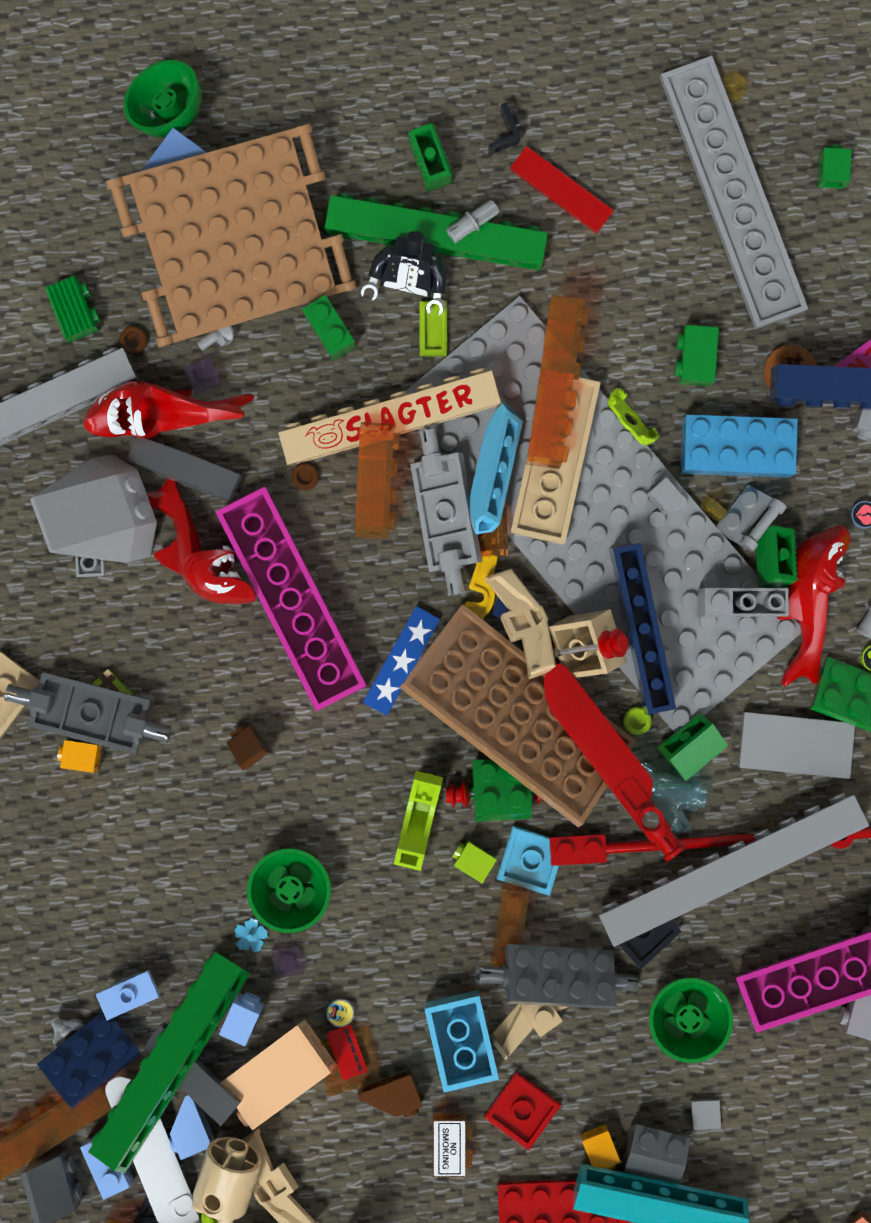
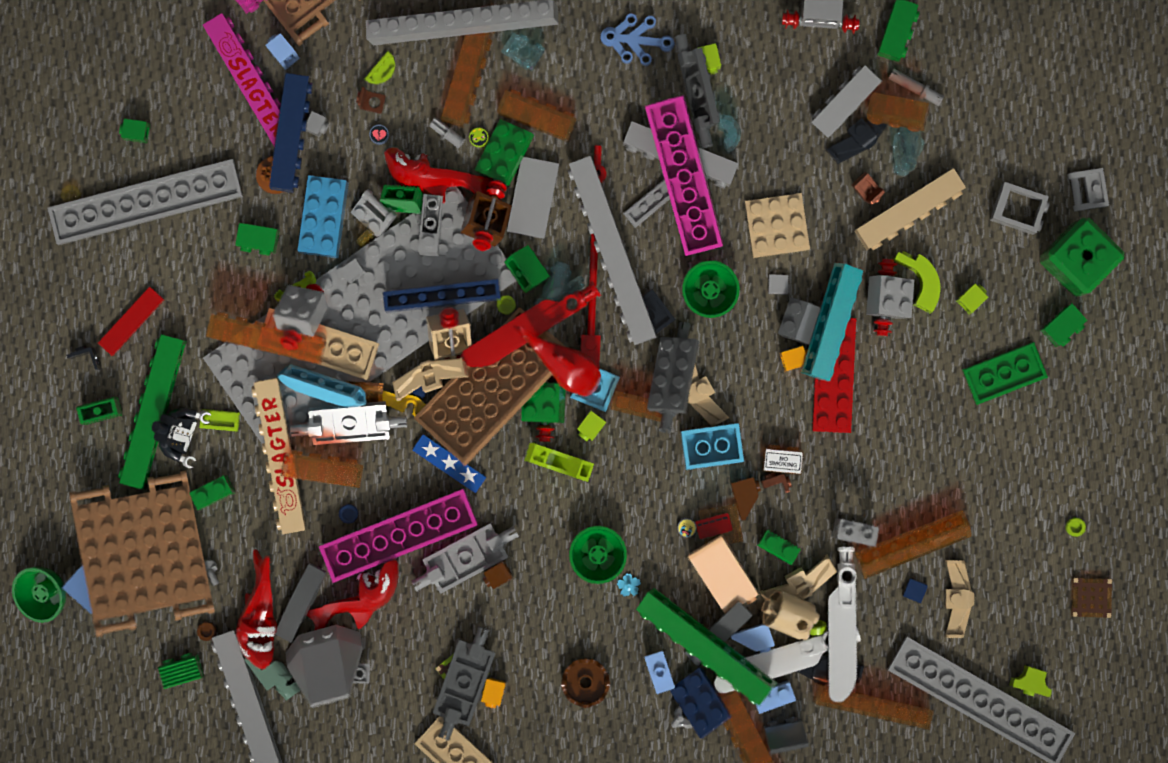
camera: 80 degrees left, 0 degrees up
(77, 444) = (276, 675): none -> sand green plate
(85, 890) = (595, 692): none -> reddish brown plate
(203, 375) = (237, 583): clear purple plate -> none
(242, 1018) = (682, 594): light blue brick -> none
(267, 697) = (465, 558): none -> light grey plate
(287, 961) = (648, 561): clear purple plate -> none
(305, 477) = (314, 519): reddish brown tile -> none
(316, 524) = (348, 513): none -> dark blue tile
(324, 1151) = (778, 547): none -> green brick
(420, 1131) = (771, 480): none -> copper bracket
(472, 221) = (148, 386): light grey axle -> none
(522, 1110) = (764, 409): red tile -> none
(557, 827) = (570, 367): none -> red piece
(598, 426) = (299, 313): none -> light grey brick
(764, 682) = (487, 216): none -> reddish brown brick
(791, 1104) = (777, 225): none -> tan plate
(804, 914) = (648, 204): none -> light grey tile

